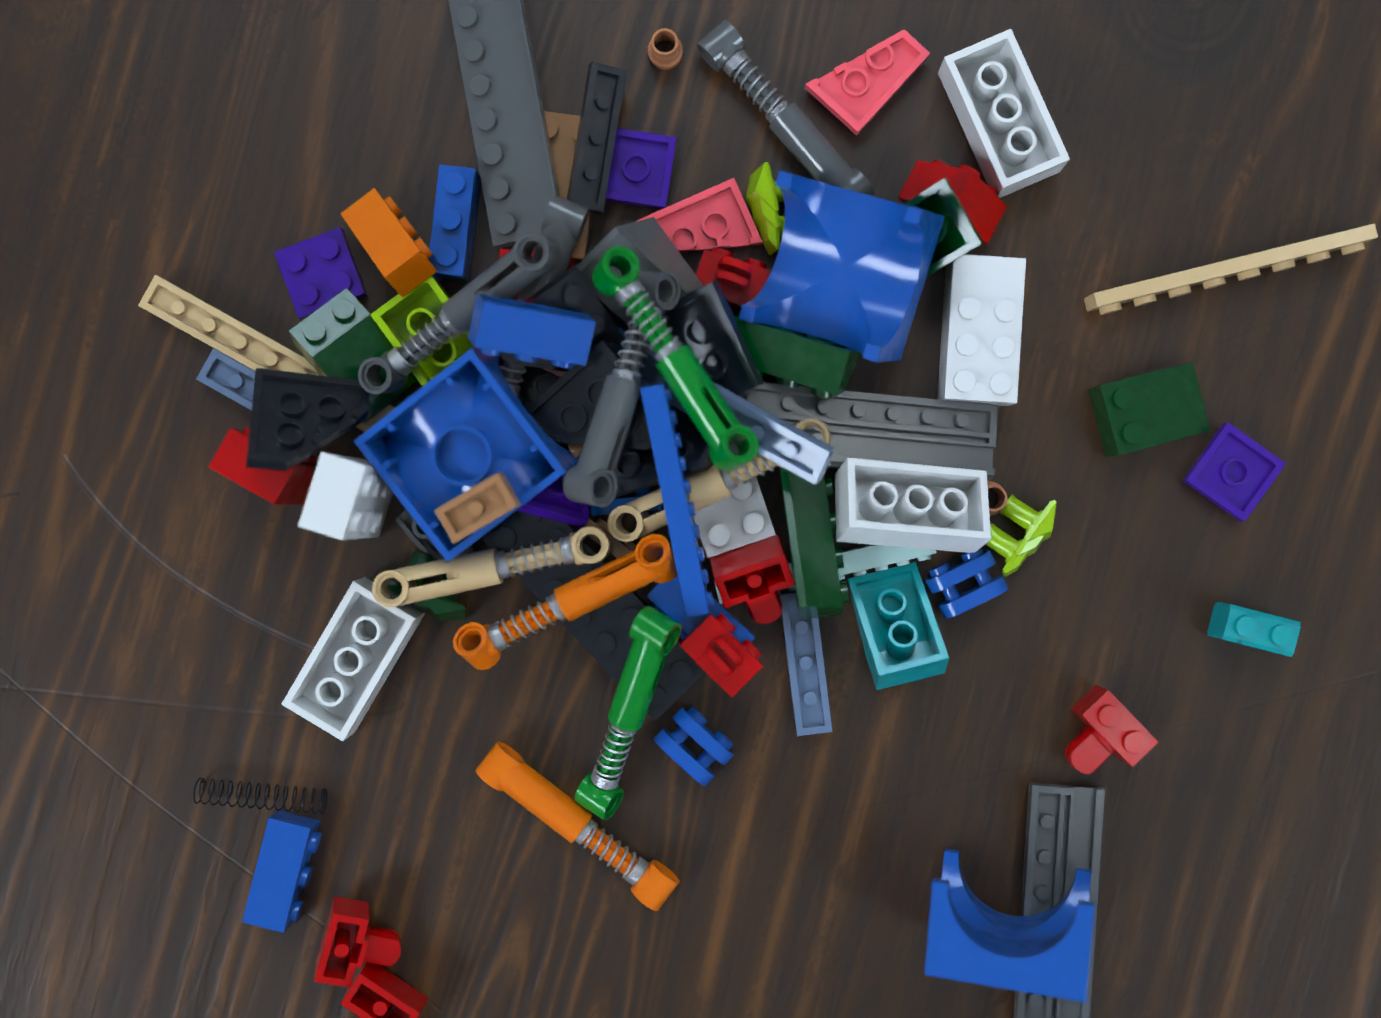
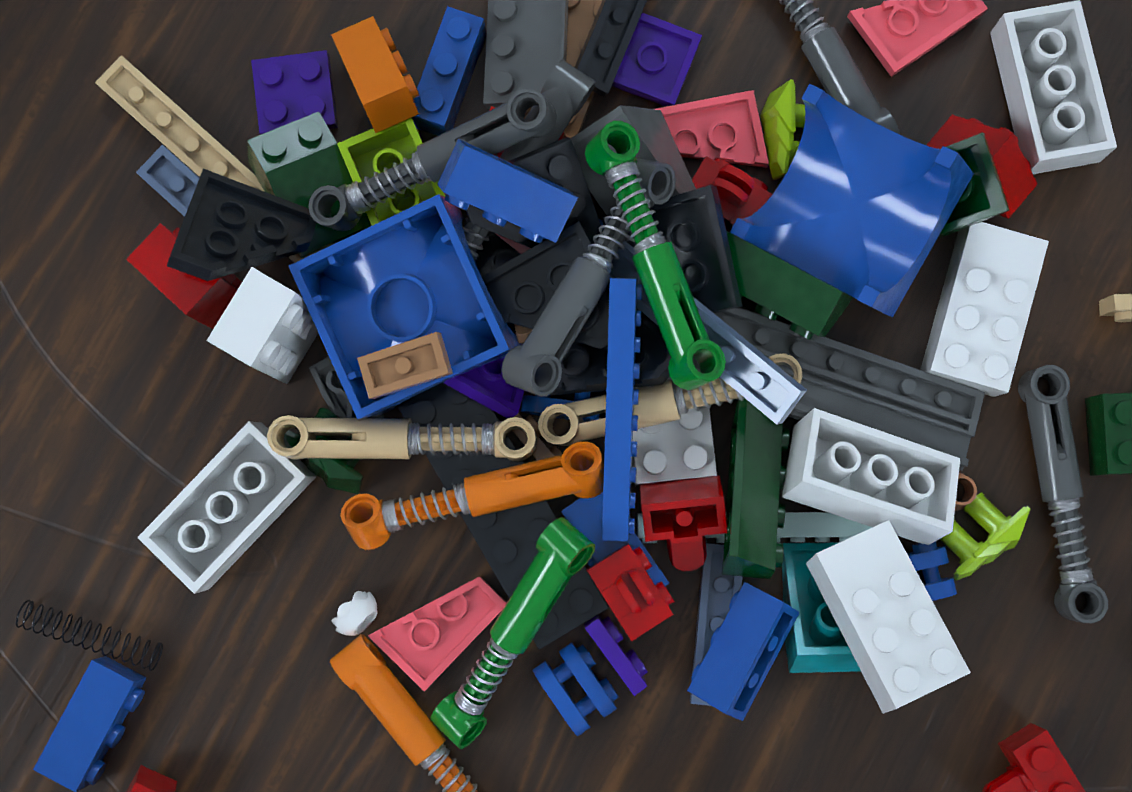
camera: 15 degrees right, 5 degrees down
(489, 726) = (356, 615): none -> white plate
(565, 723) = (439, 631): none -> coral wing
(732, 716) = (625, 663): none -> dark purple plate
(831, 682) = (742, 651): none -> blue brick
(948, 626) = (887, 617): none -> white brick
(1081, 475) = (1062, 489): none -> dark grey piece

